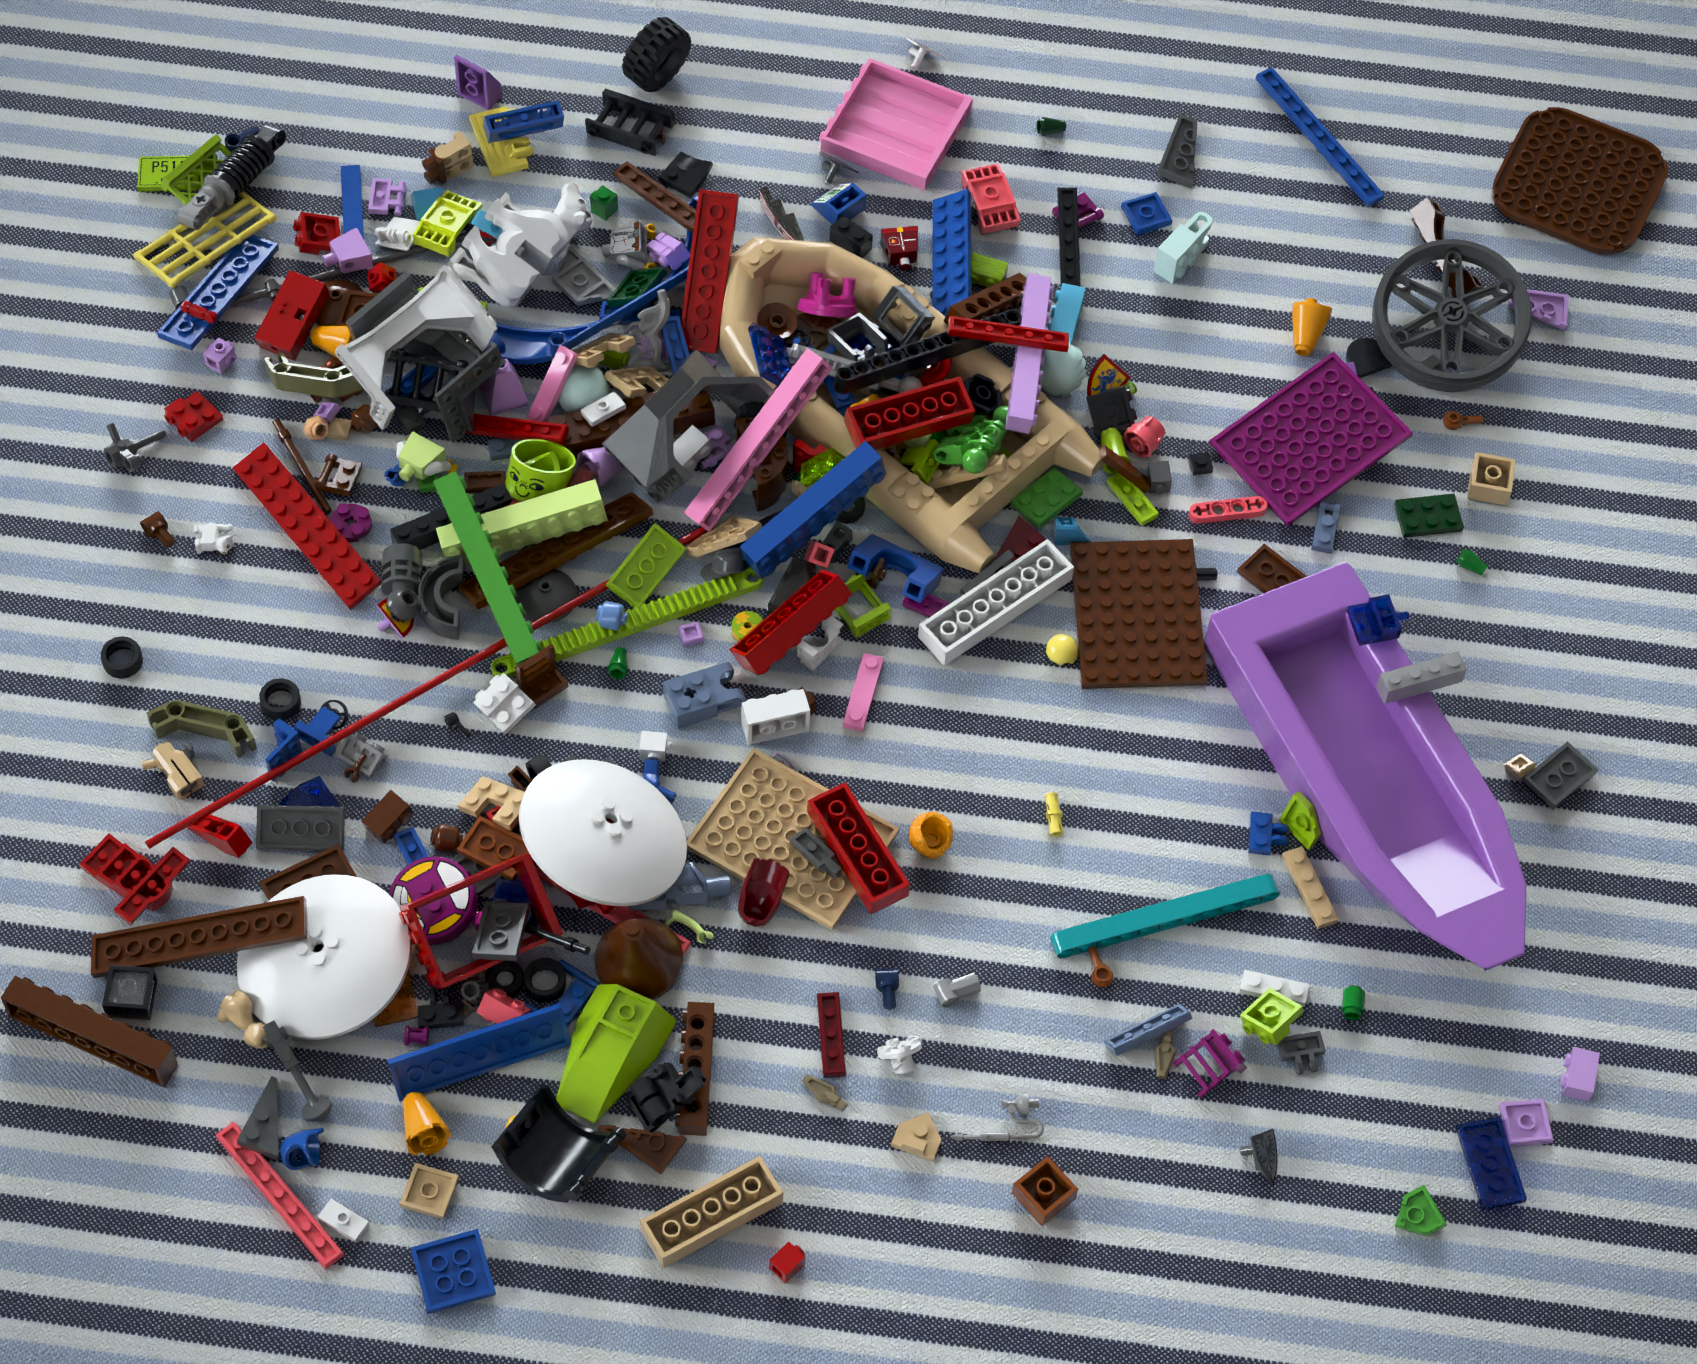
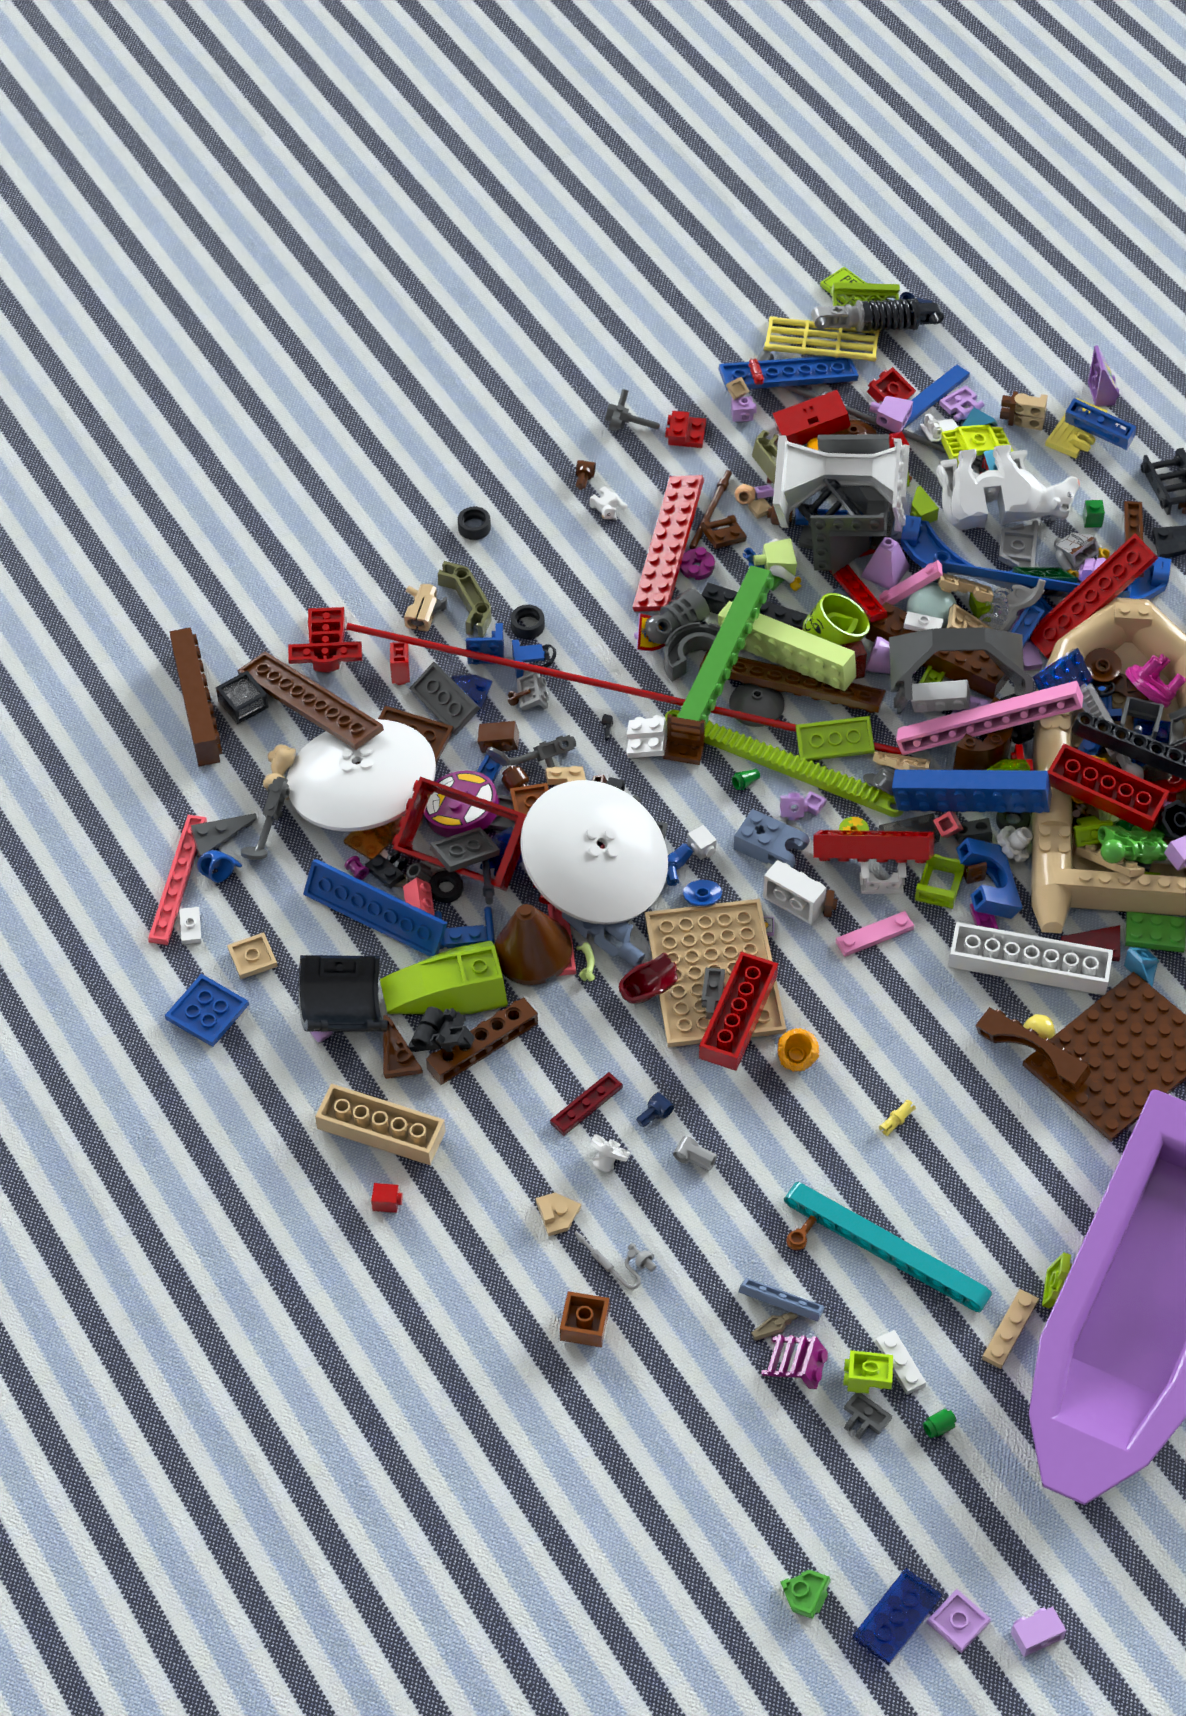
camera: 55 degrees right, 5 degrees down
(202, 340) = (737, 388): none -> tan tile
(423, 1126) = (292, 917): light orange cone -> none
(440, 794) = (543, 751): none -> dark grey piece
(482, 481) = (800, 604): reddish brown plate -> none
(544, 995) = (465, 896): black tyre -> none
(611, 615) = (771, 744): medium blue head -> none
(684, 651) = (793, 799): none -> lavender brick
(704, 779) = (702, 893): none -> blue dish
(824, 1092) = (537, 1131): dark tan piece -> none
(877, 521) = (1015, 842): none -> white plant
(1003, 561) = (1061, 935): dark grey plate -> none
(1126, 658) = (1000, 1029): none -> reddish brown arch
(1261, 833) = (1022, 1264): blue hinge -> none
(1264, 1153) = (752, 1446): shield -> none

